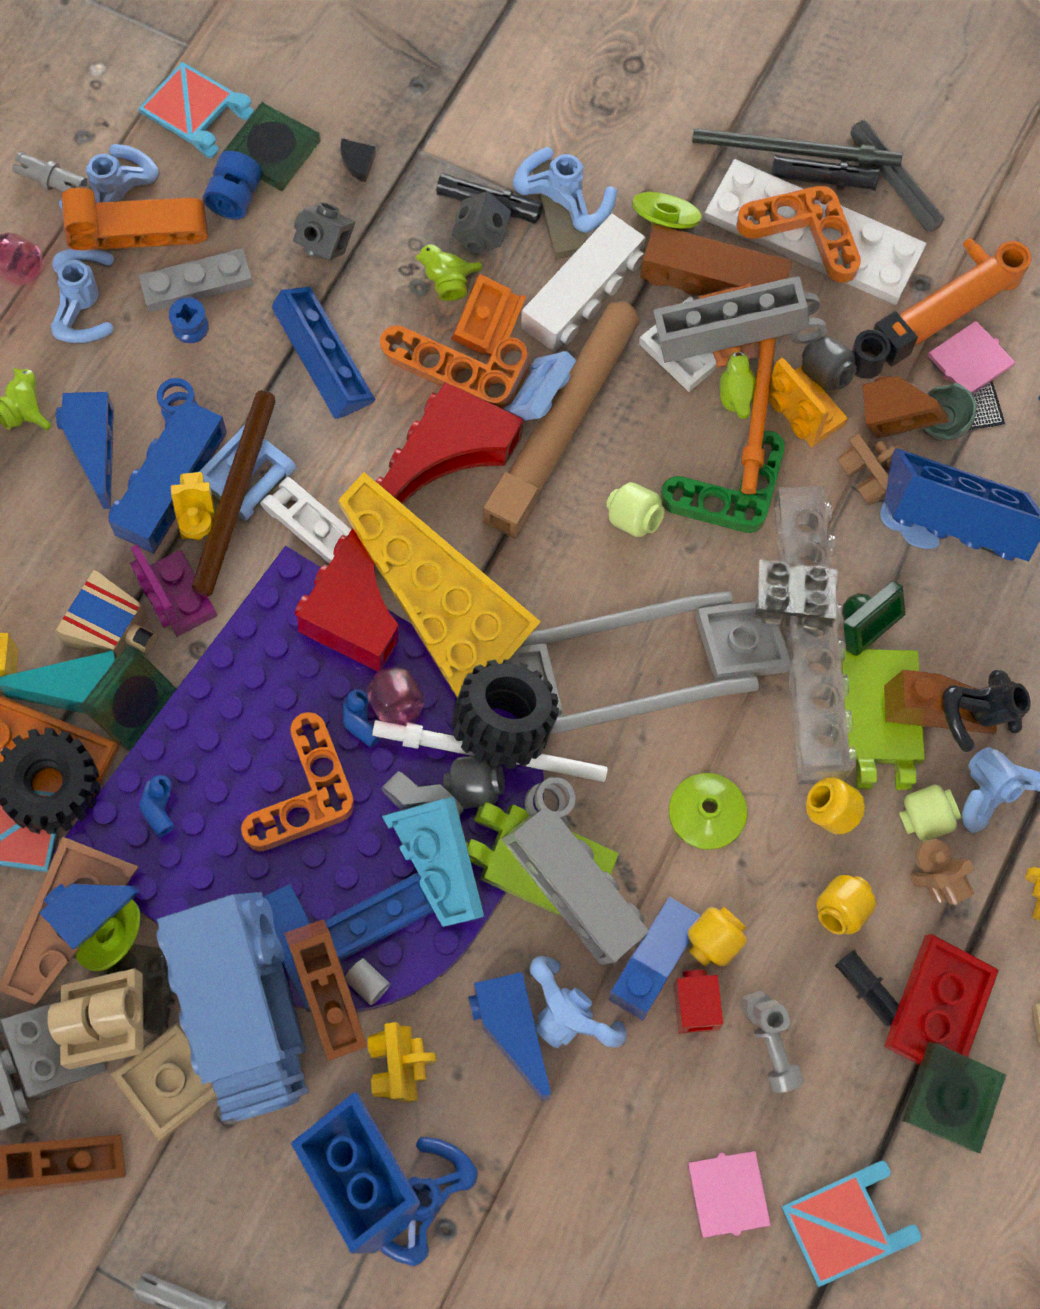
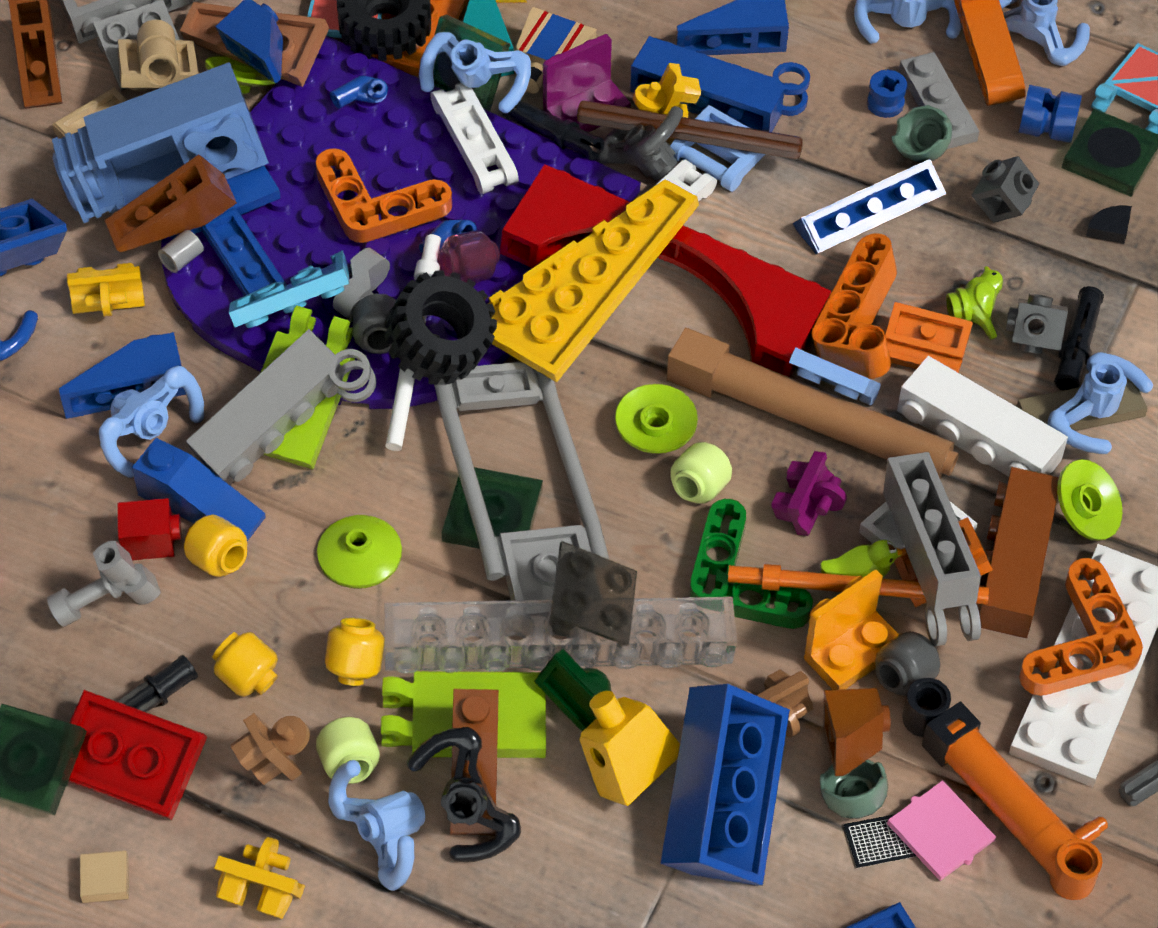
camera: 90 degrees right, 15 degrees down
(153, 682) = (474, 66): none -> light blue piece
(212, 621) = (564, 133): none -> black pin
(229, 691) = (475, 137): none -> white plate
(251, 291) = (923, 134): none -> sand green hair
(254, 534) = (643, 147): none -> dark grey piece
(577, 528) = (656, 406): none -> lime dish
(640, 419) = (814, 495): none -> magenta hips
(665, 672) = (508, 500): none -> clear green tile
(930, 579) = (626, 747): none -> yellow torso

